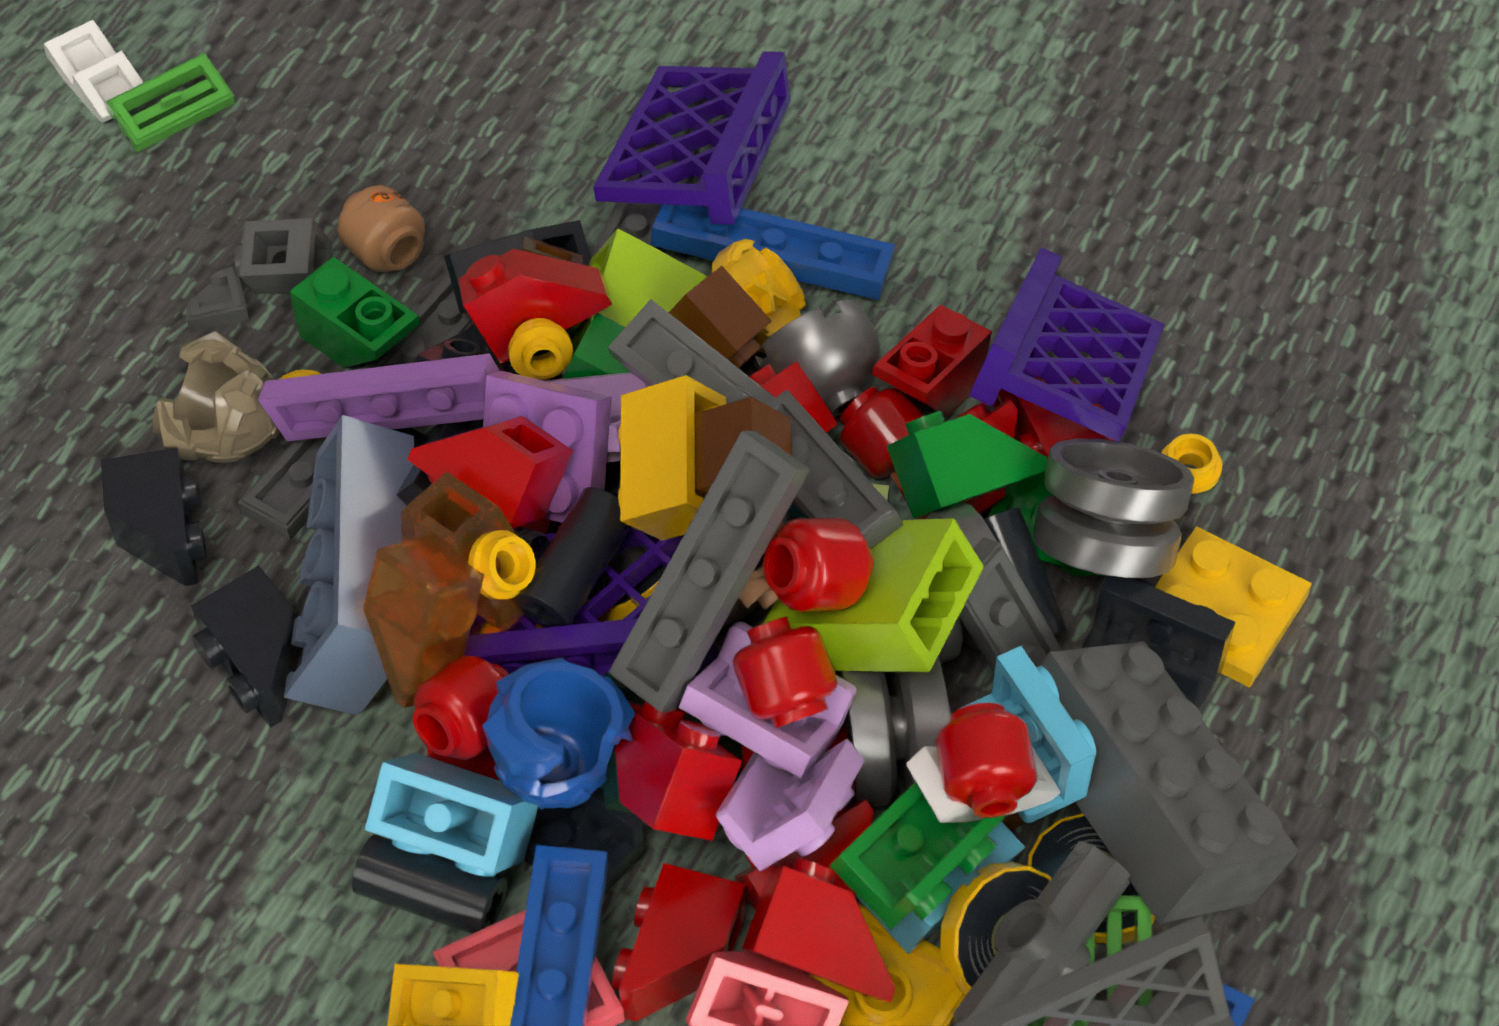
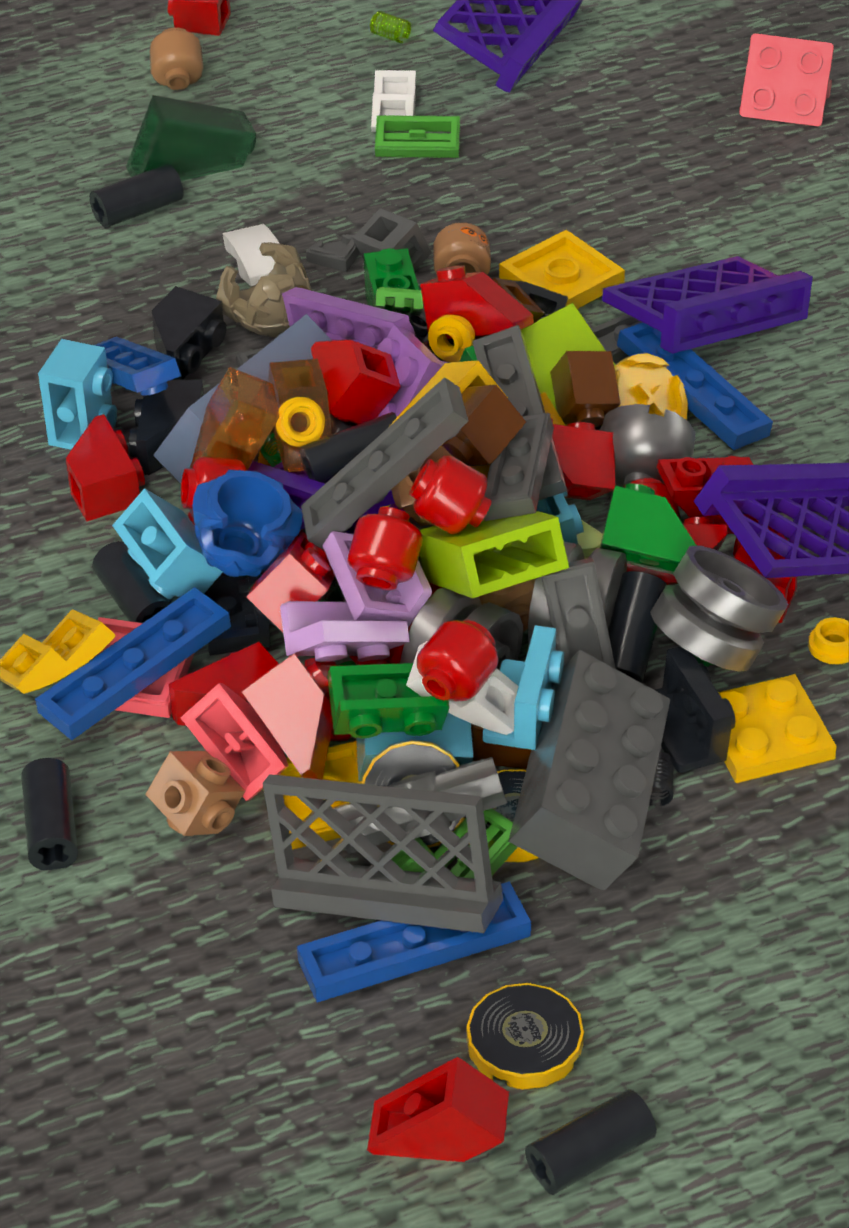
camera: 40 degrees right, 10 degrees down
(131, 678) = (74, 391): none -> medium azure brick
(134, 354) = (244, 247): none -> white slope
(157, 601) = (138, 366): none -> blue plate
(241, 757) = (101, 471): none -> red slope
(420, 336) = (399, 299): none -> bright green tile
(501, 187) = (565, 267): none -> yellow plate

